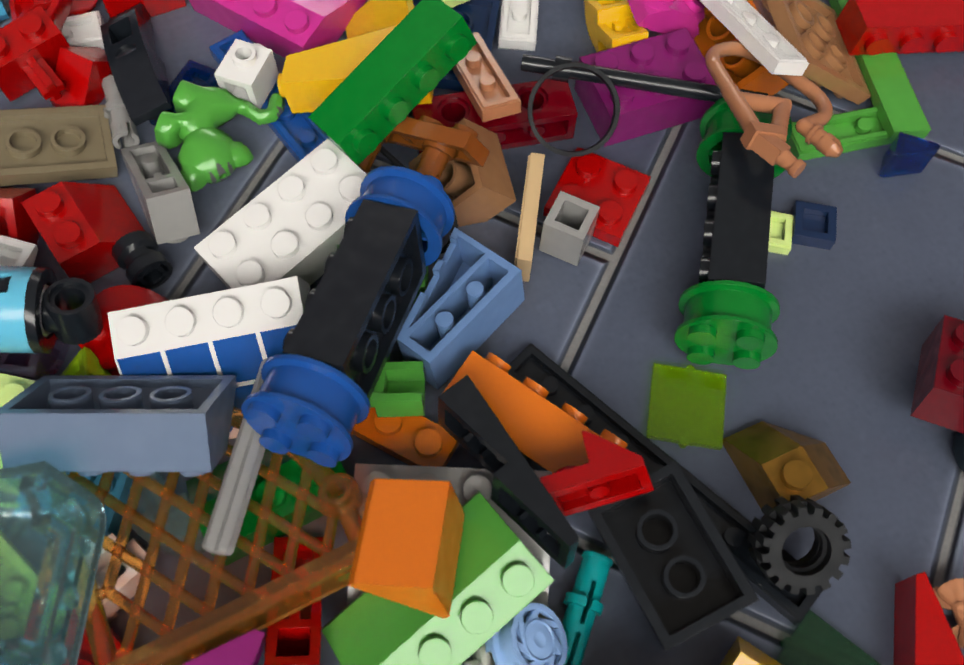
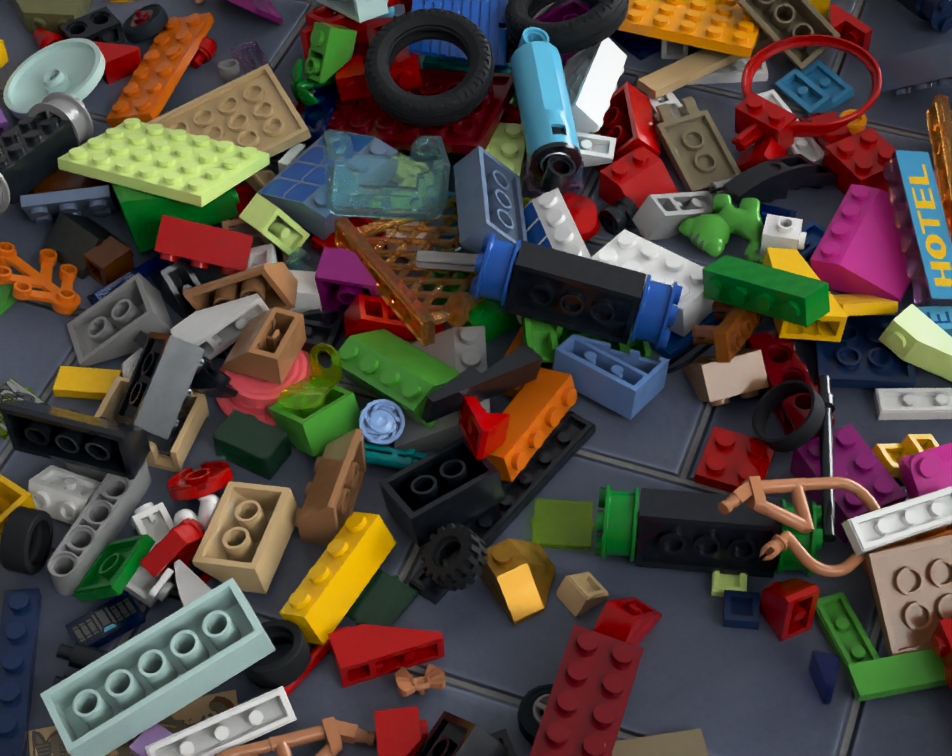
camera: 90 degrees right, 15 degrees down
(409, 544) = (423, 333): orange slope -> none
(486, 83) = (811, 363): nougat tile -> none
(529, 214) = (700, 415): tan tile -> none
(568, 228) = (689, 432): light grey brick -> none
(799, 394) = (581, 593): none -> tan slope
(829, 177) = (789, 606): none -> red slope
(860, 345) = (627, 620): none -> red slope

